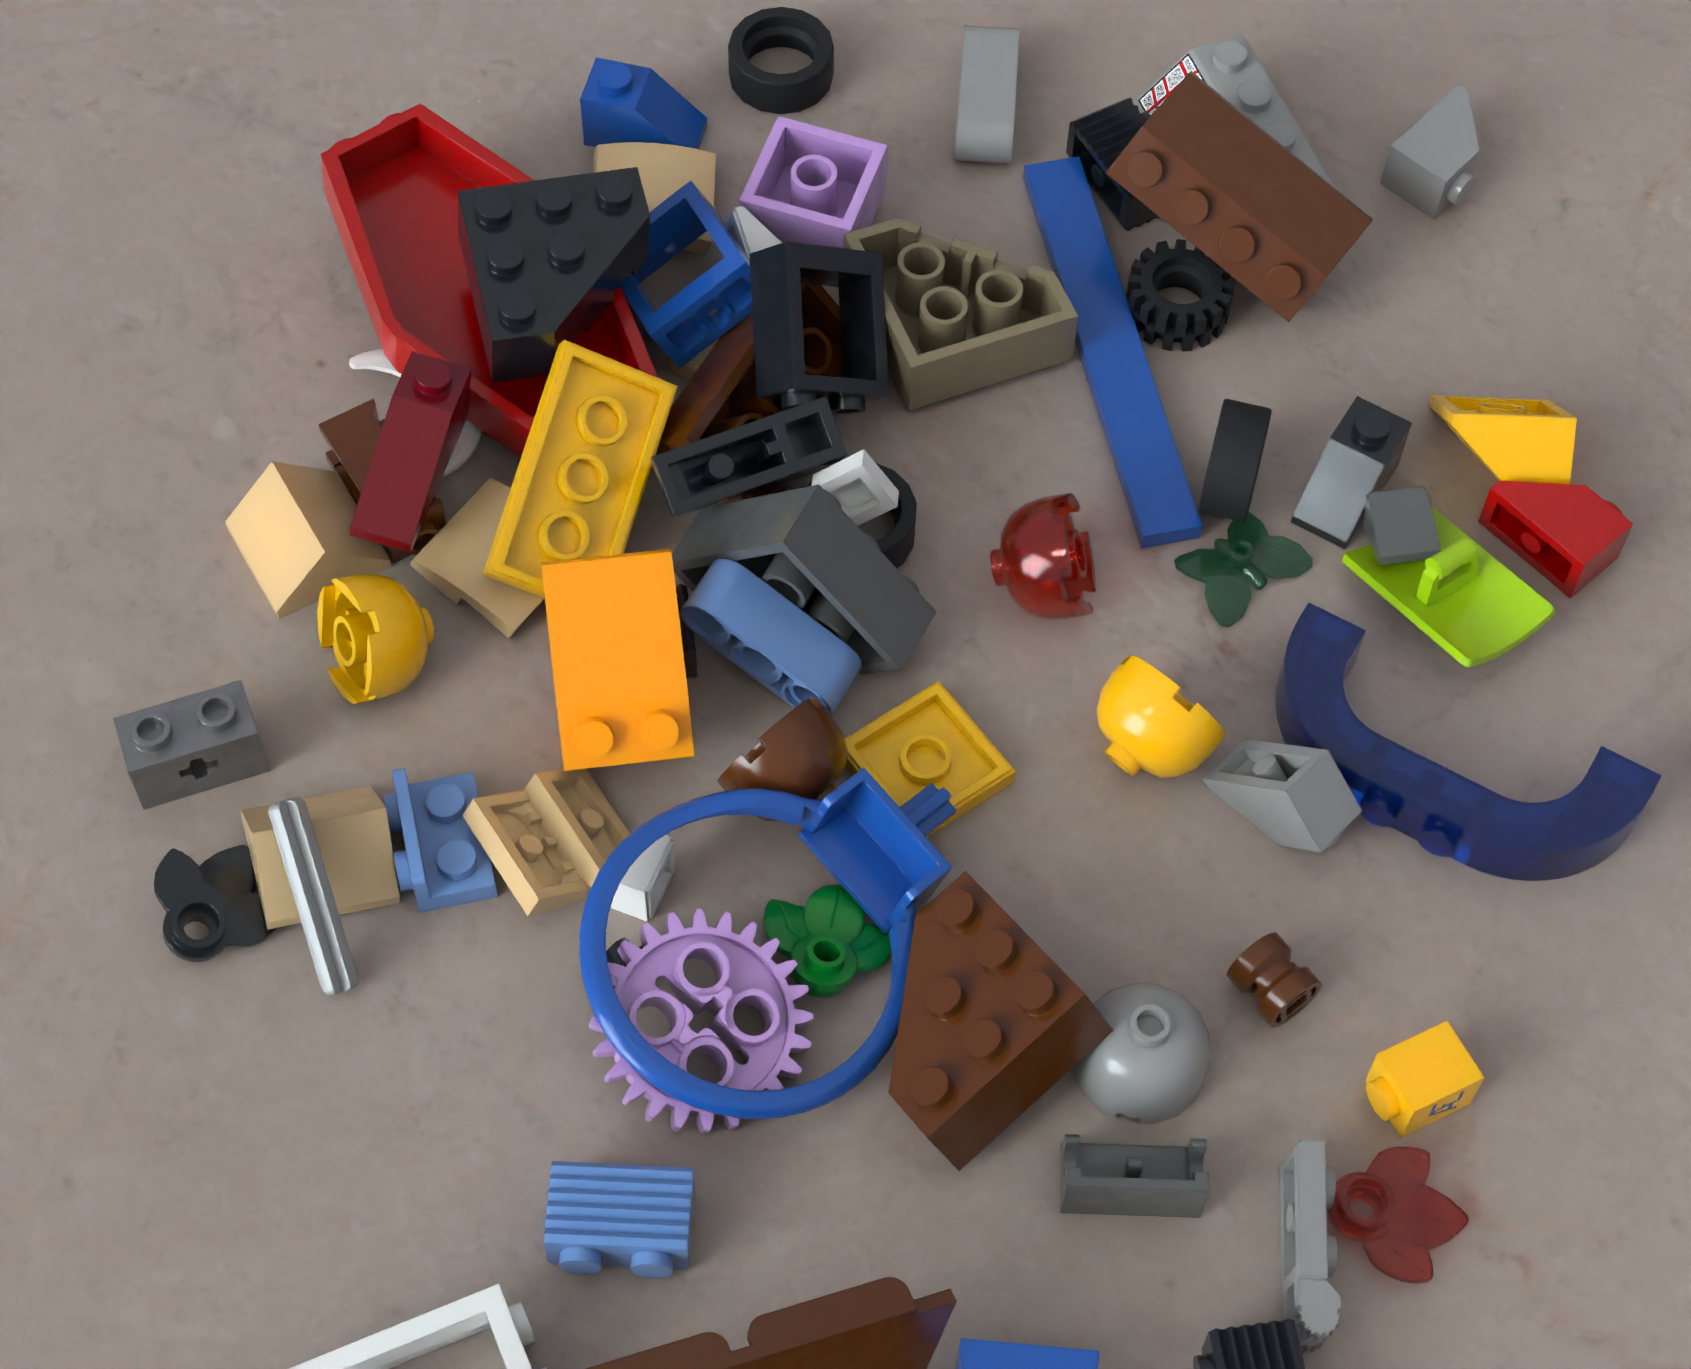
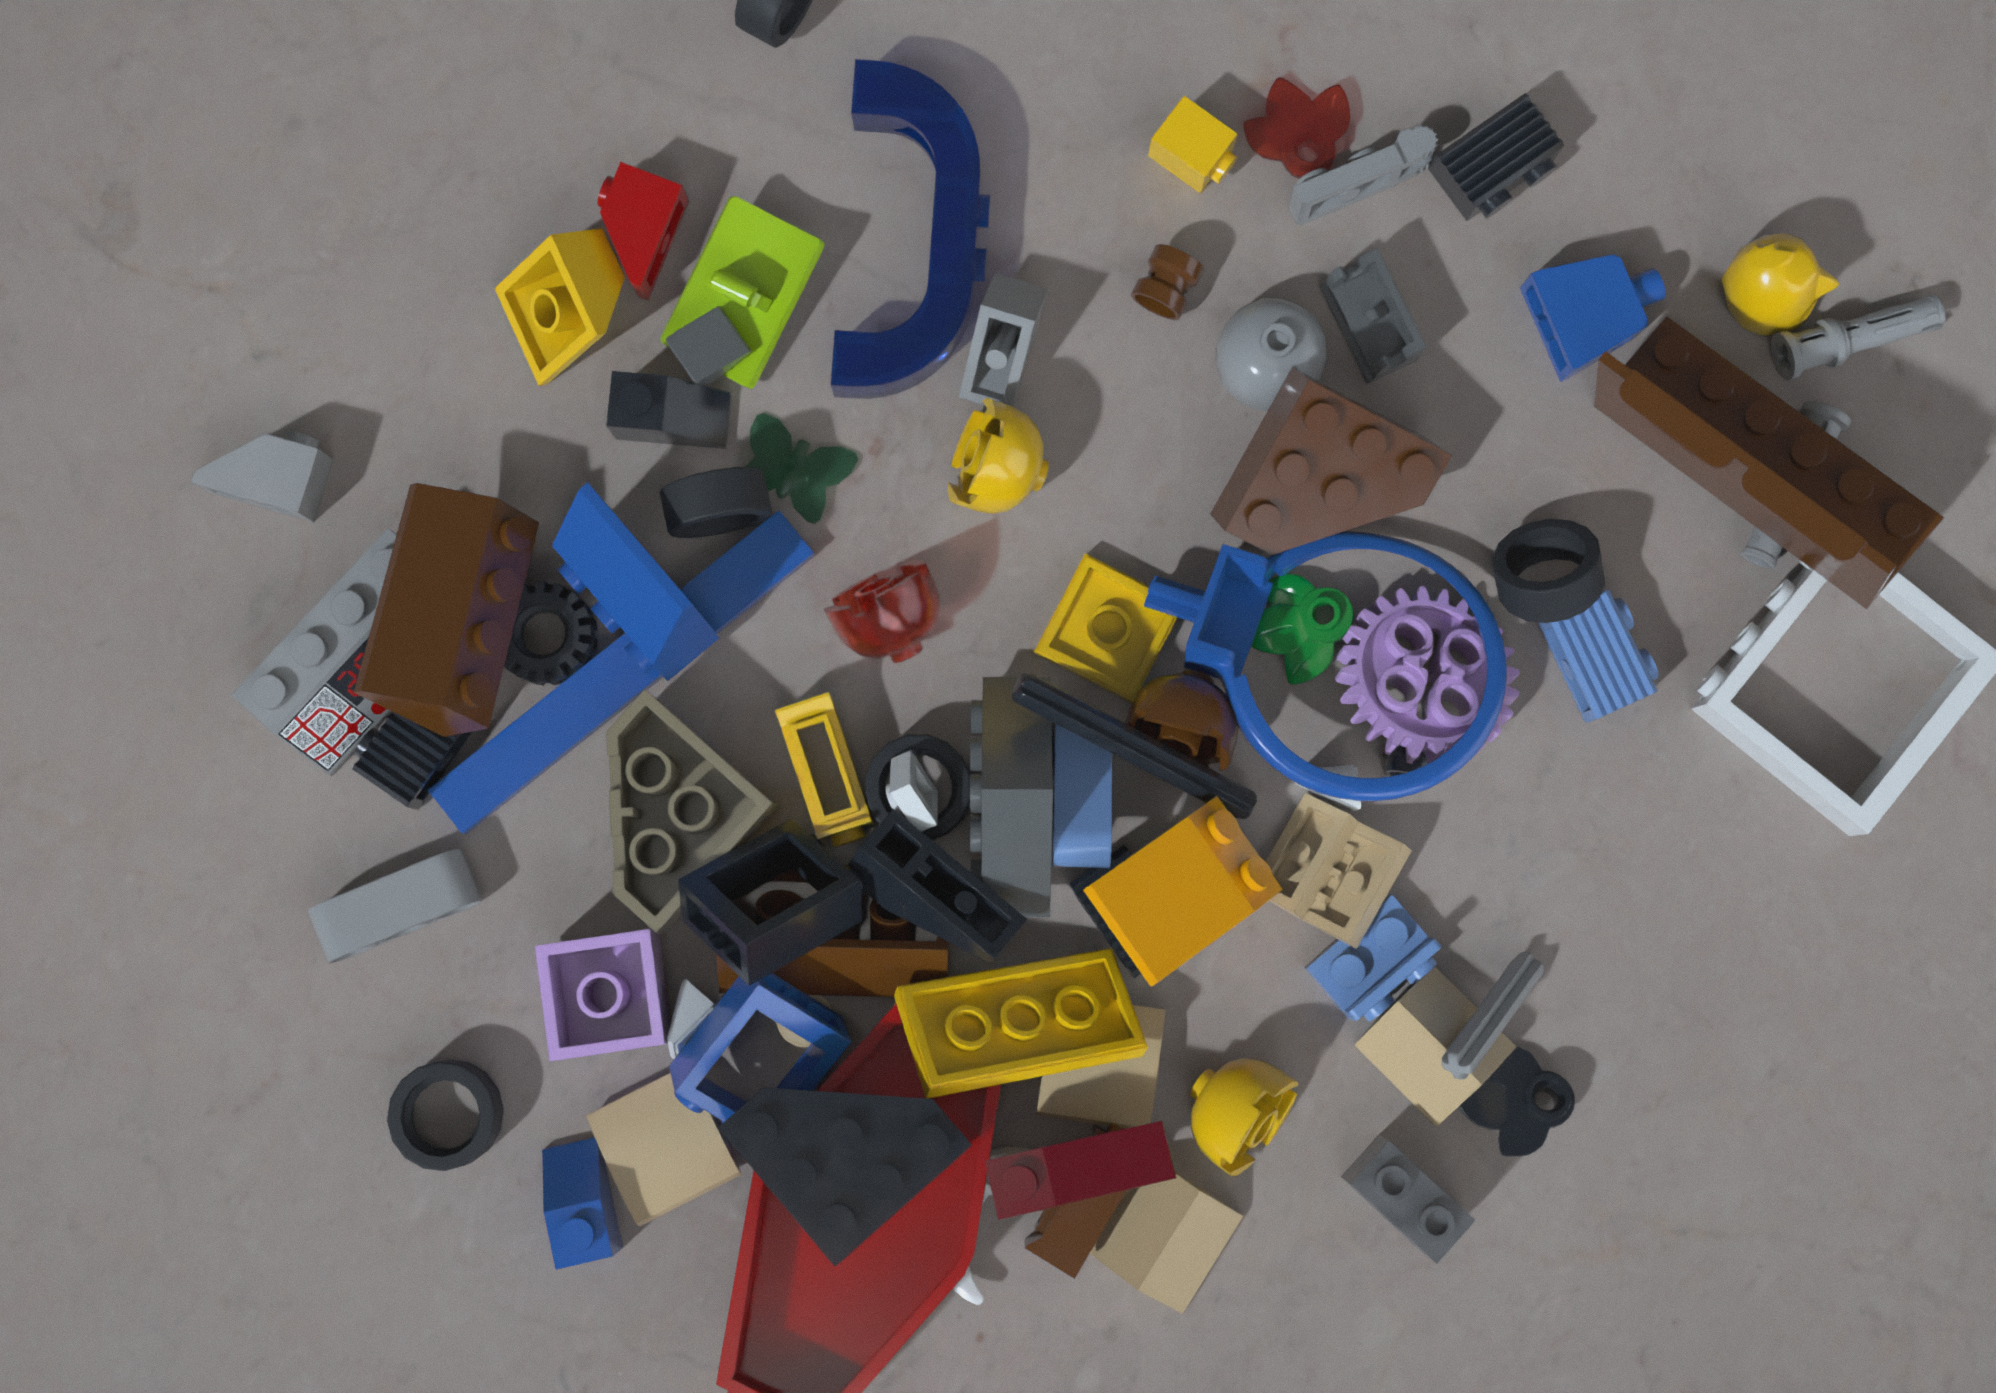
camera: 115 degrees left, 25 degrees up
(707, 1205) = (1550, 599): none -> black tyre
(798, 683) = (1132, 744): none -> black axle
(929, 452) = (845, 825): none -> yellow window
(1185, 362) = (629, 587): none -> blue slope

